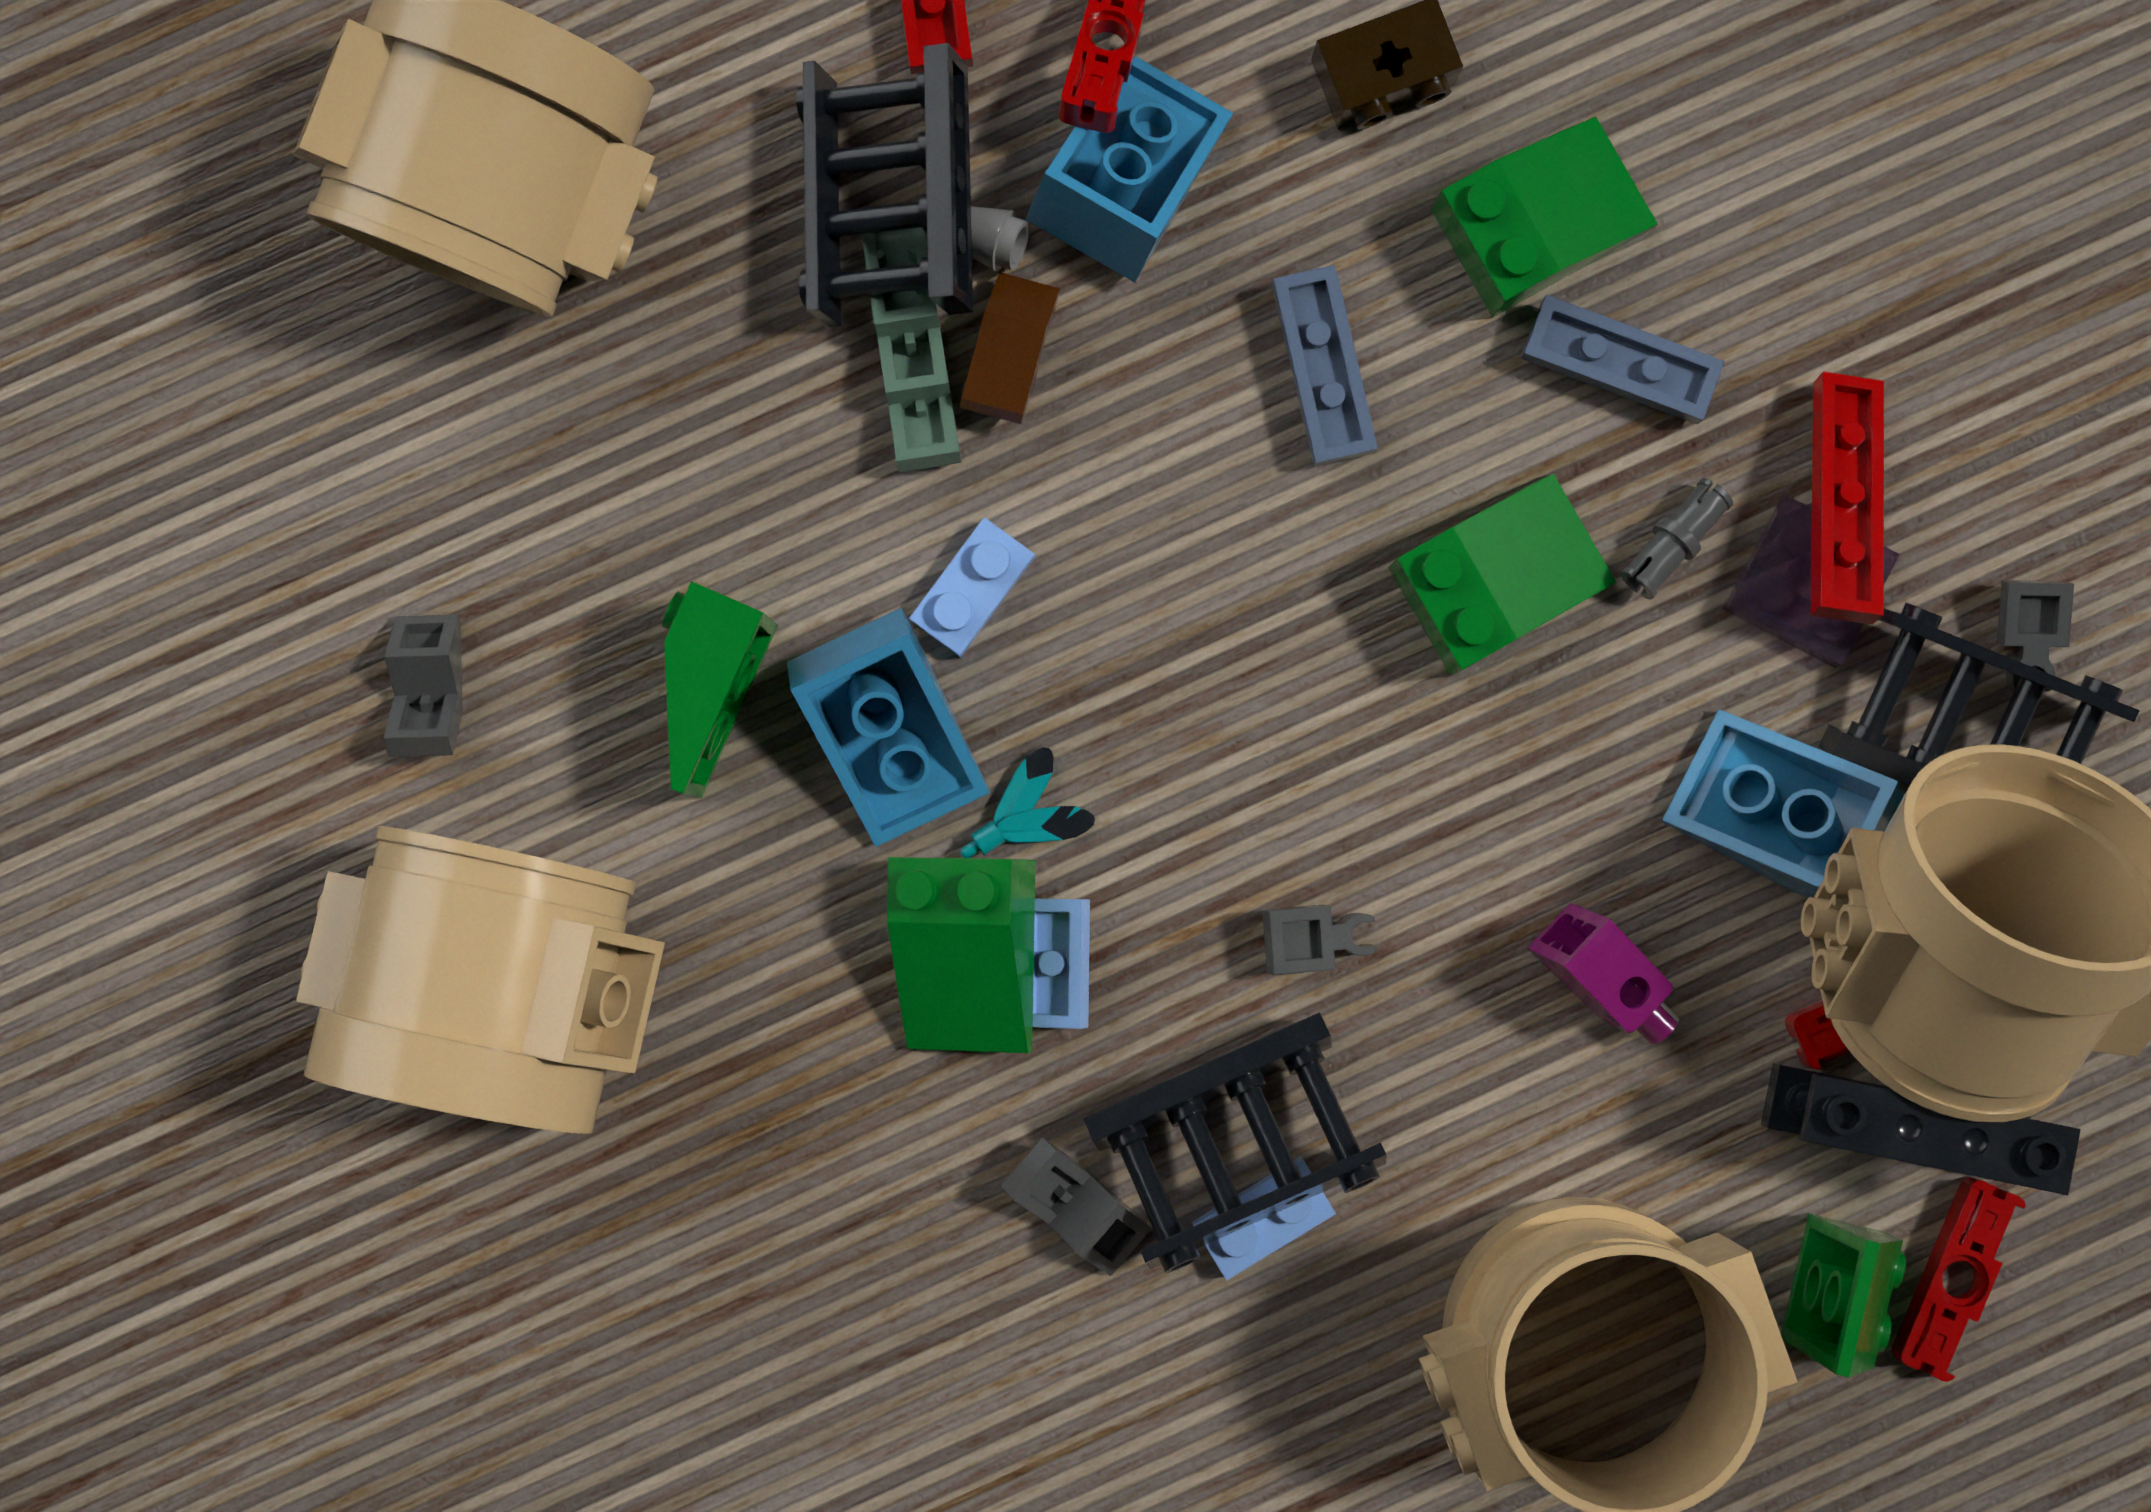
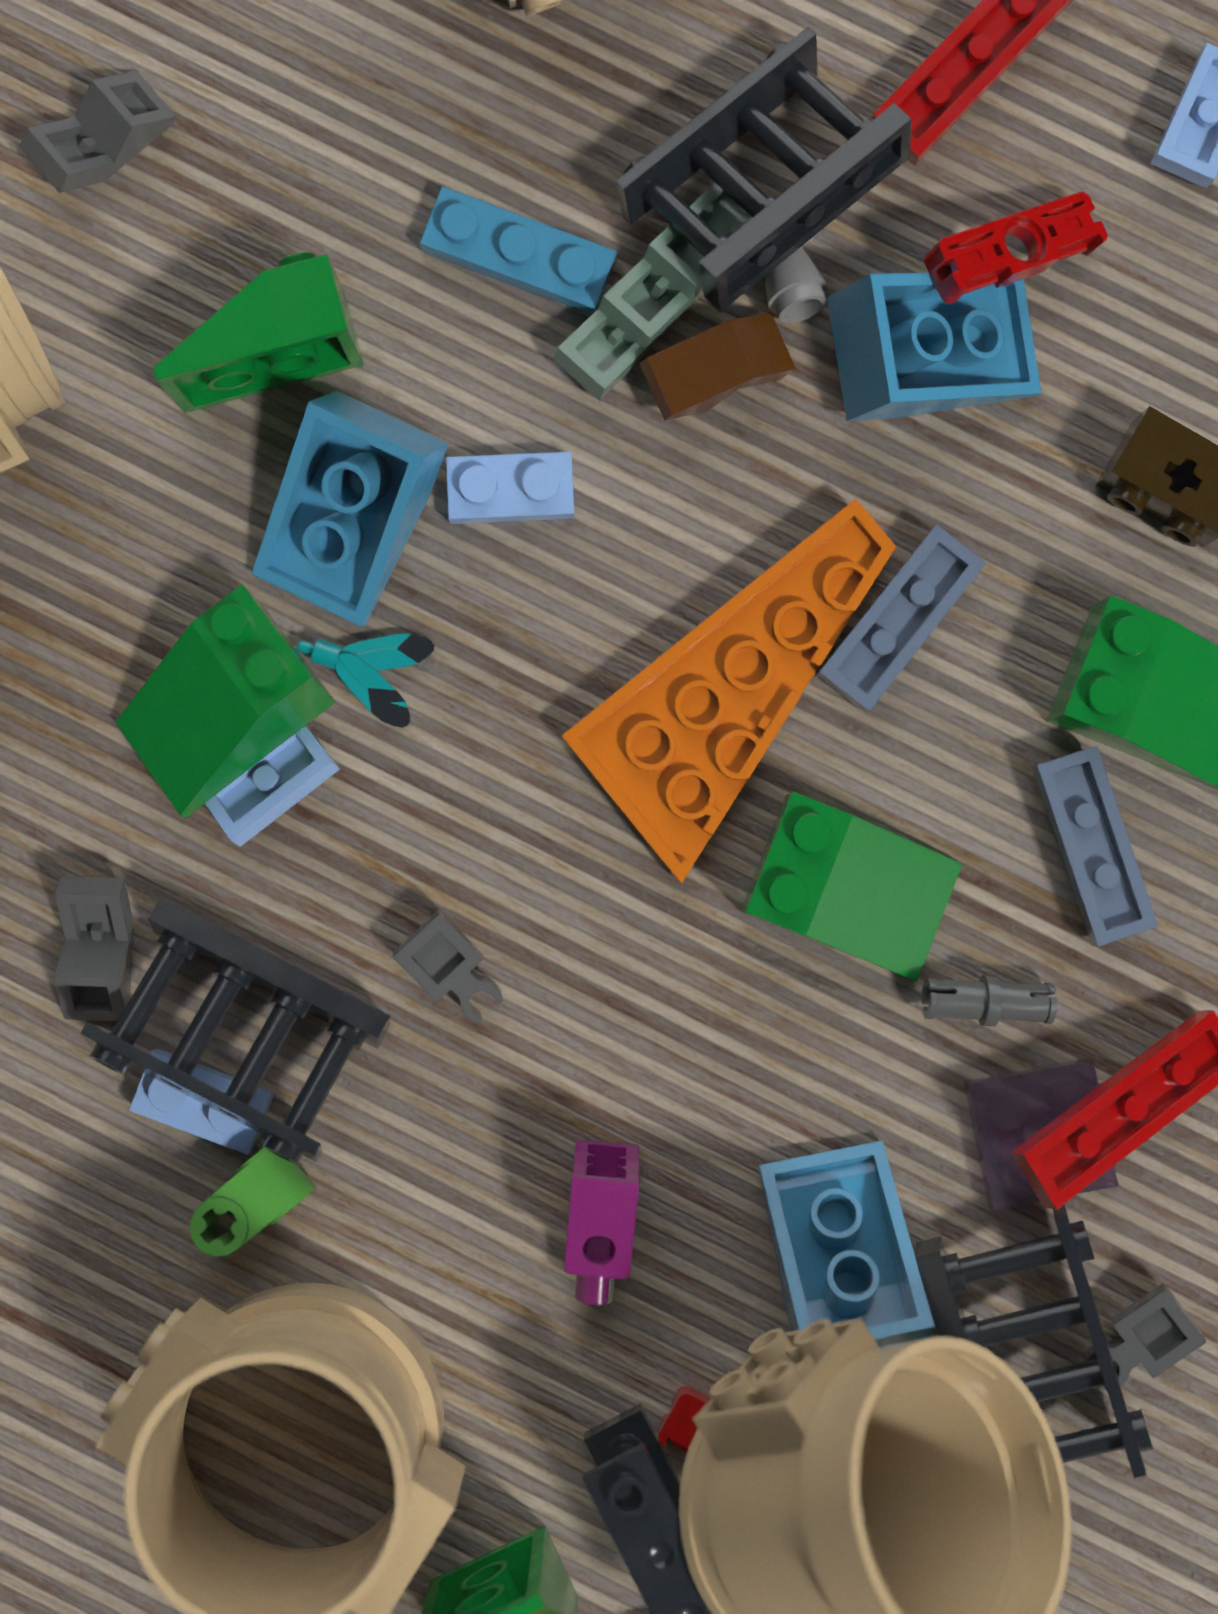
camera: 50 degrees right, 0 degrees up
(788, 430) = (518, 250): none -> dark azure plate
(1274, 571) = (707, 709): none -> orange wing
(1376, 1227) = (256, 1195): none -> bright green piece

